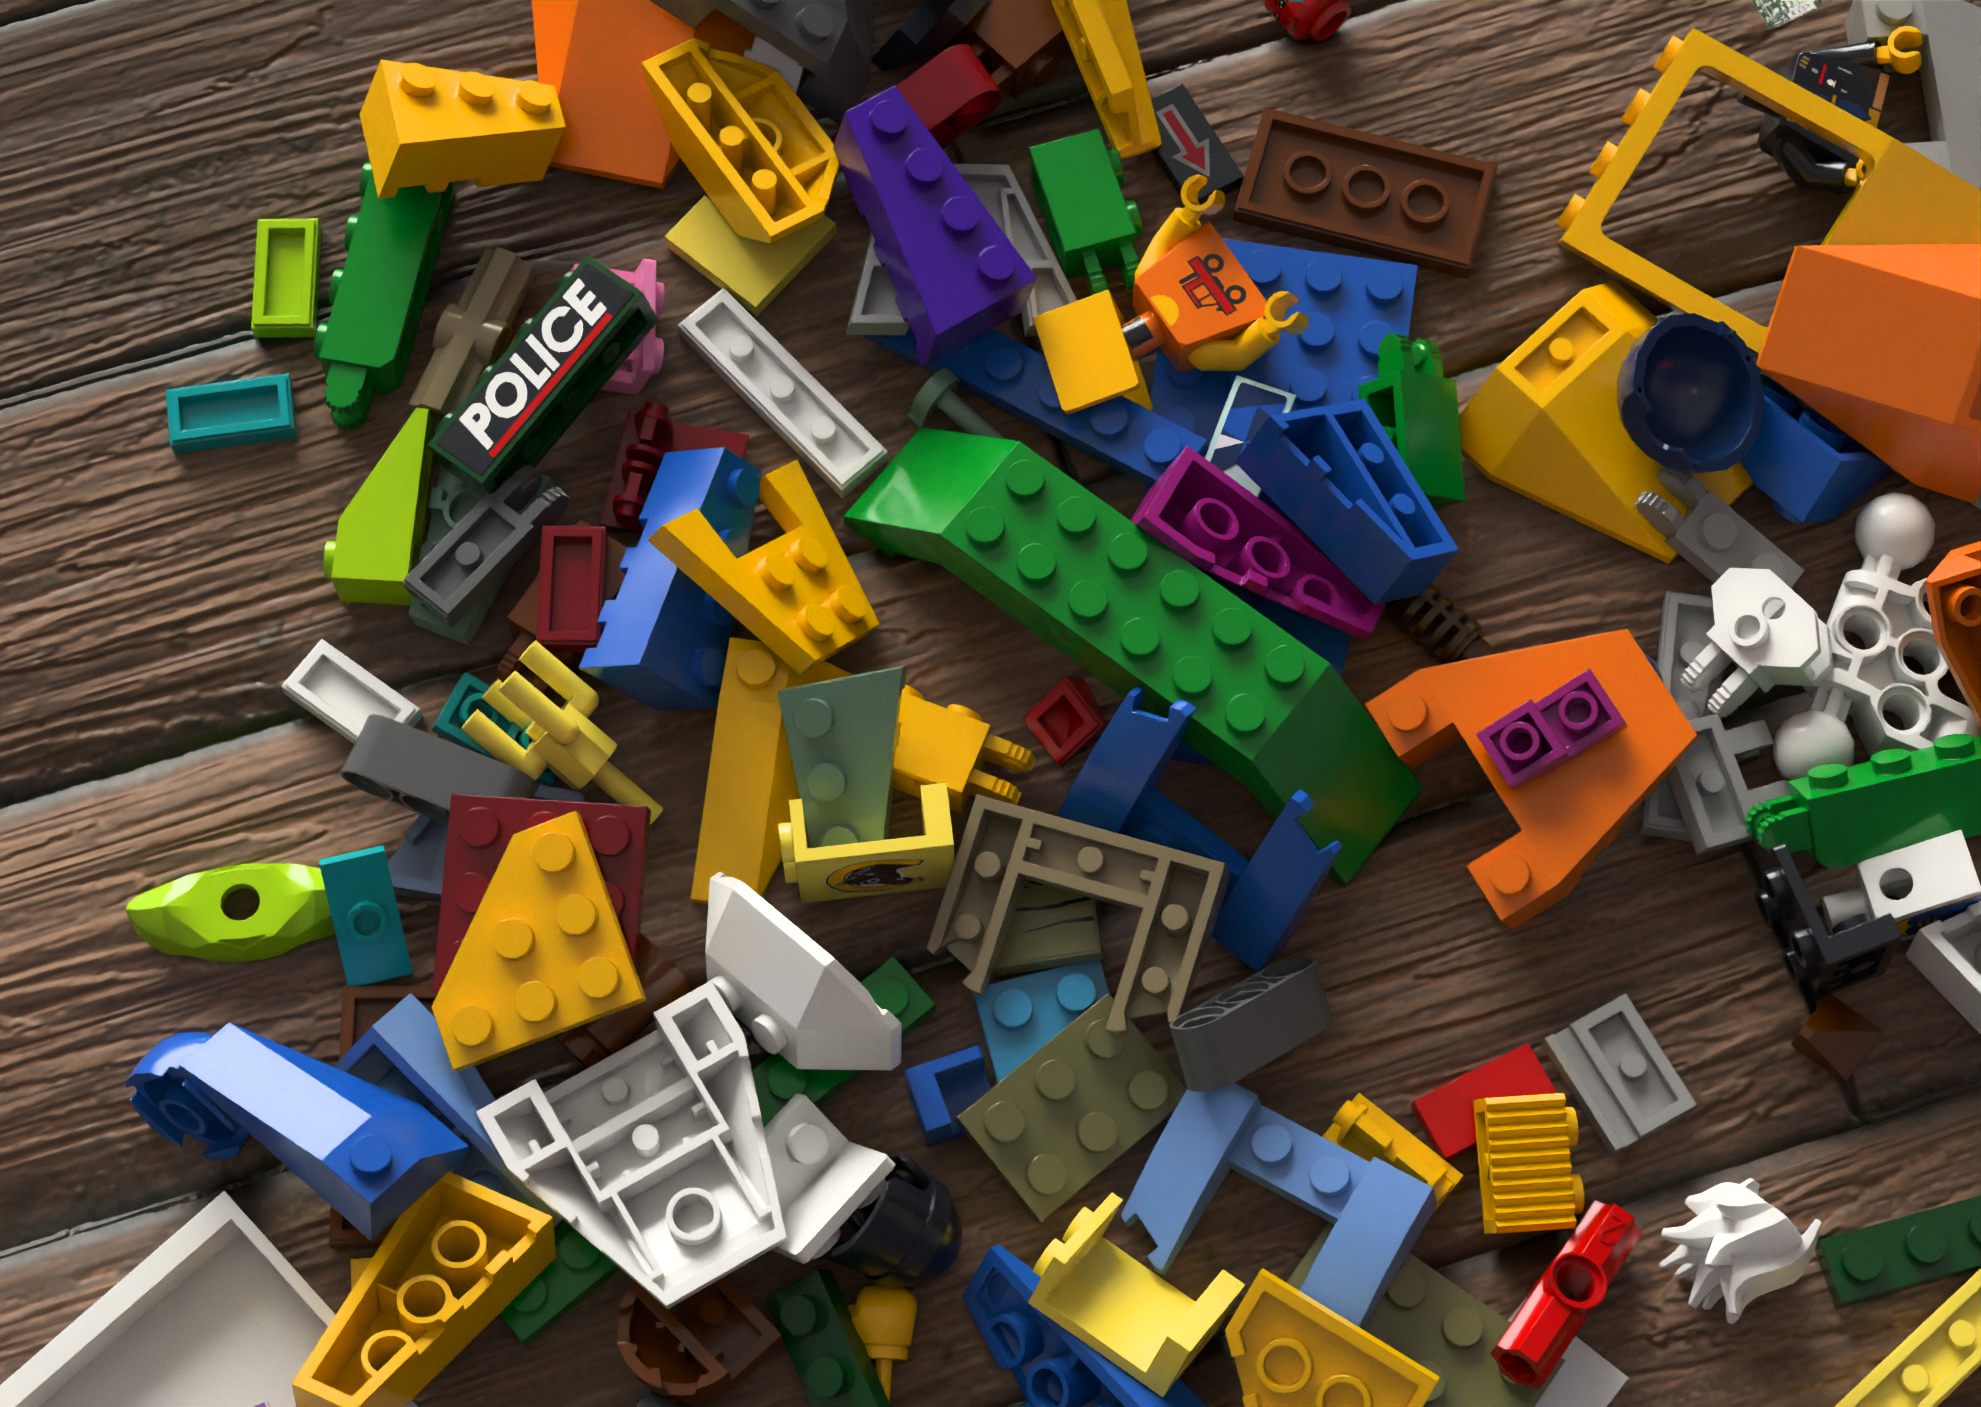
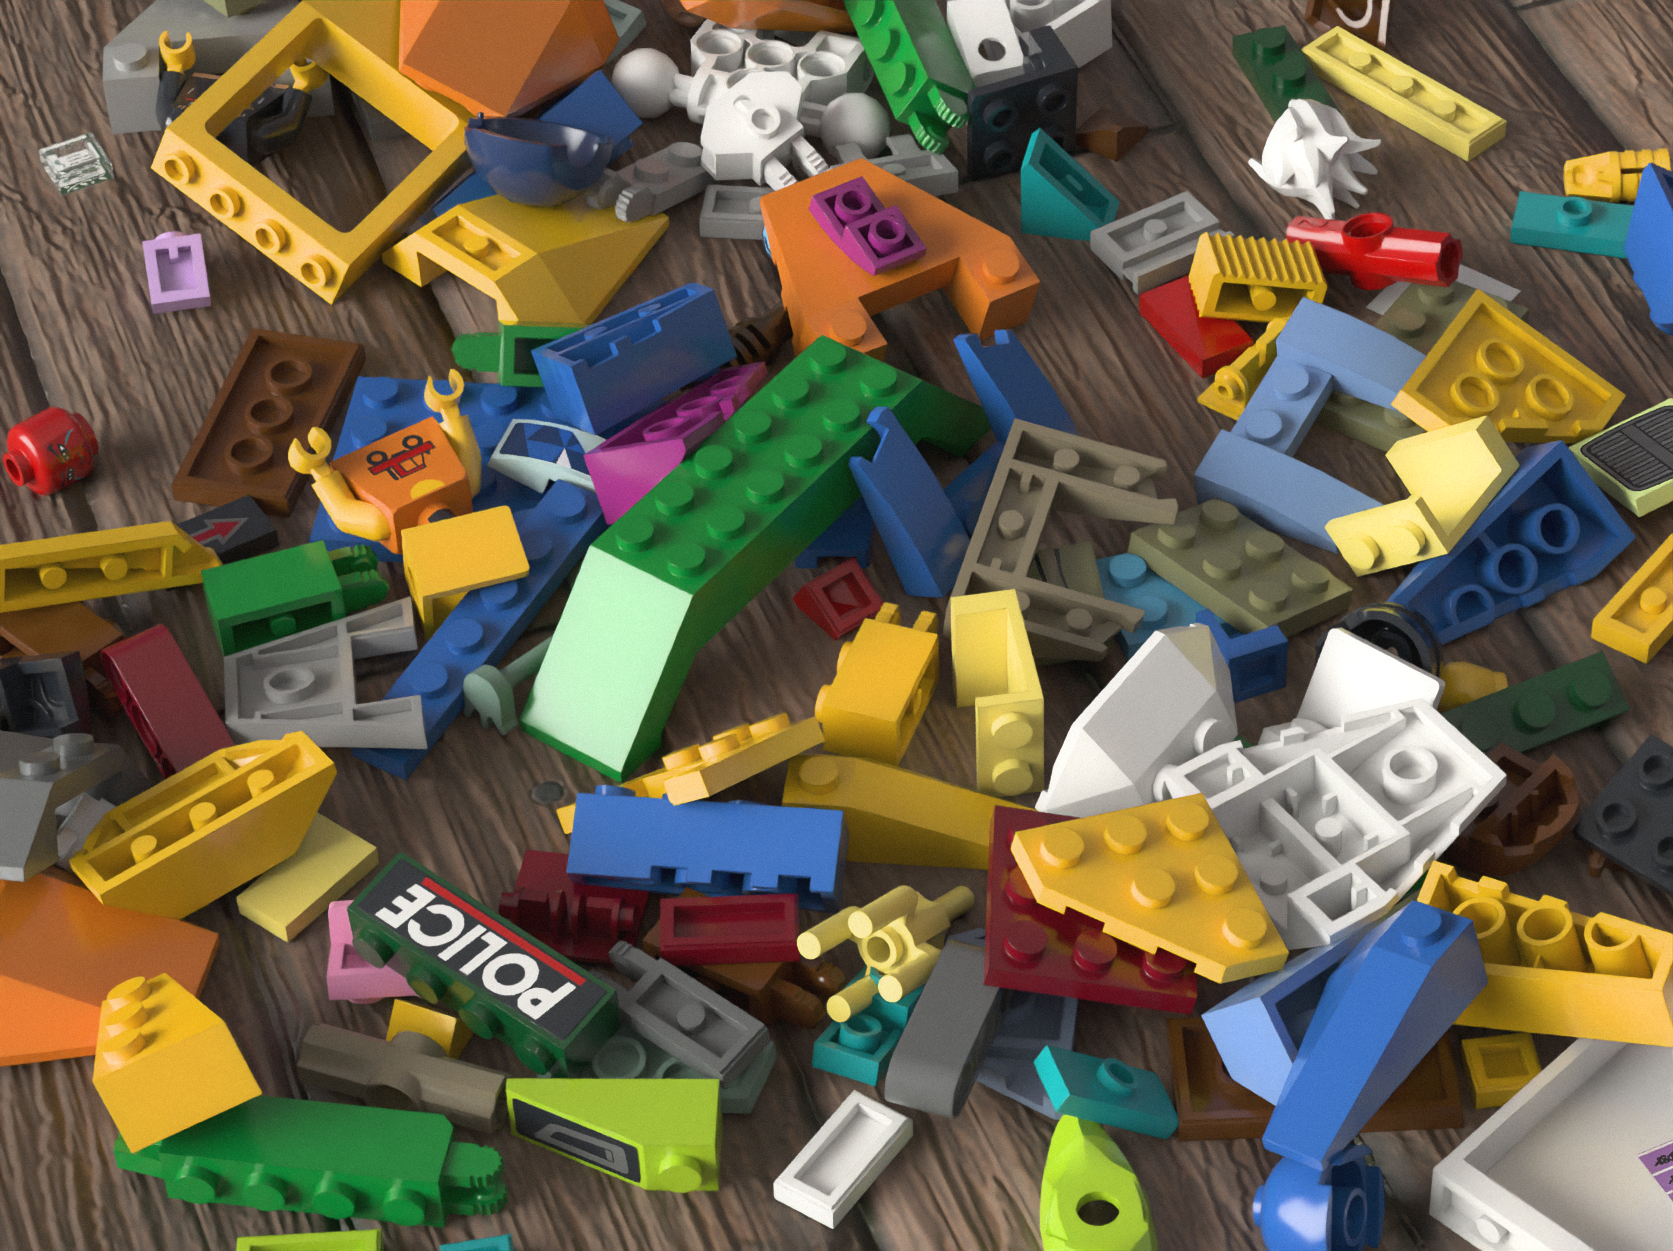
camera: 90 degrees left, 25 degrees down
(783, 393) = (491, 816): white tile -> none
(844, 753) = (897, 707): sand green wing -> none
(929, 228) = (321, 659): dark purple wedge -> none
(1251, 1024) = (1158, 429): dark grey beam -> none
(1583, 88) = (176, 272): none -> lavender bracket
(1694, 971) = (1060, 194): none -> teal slope

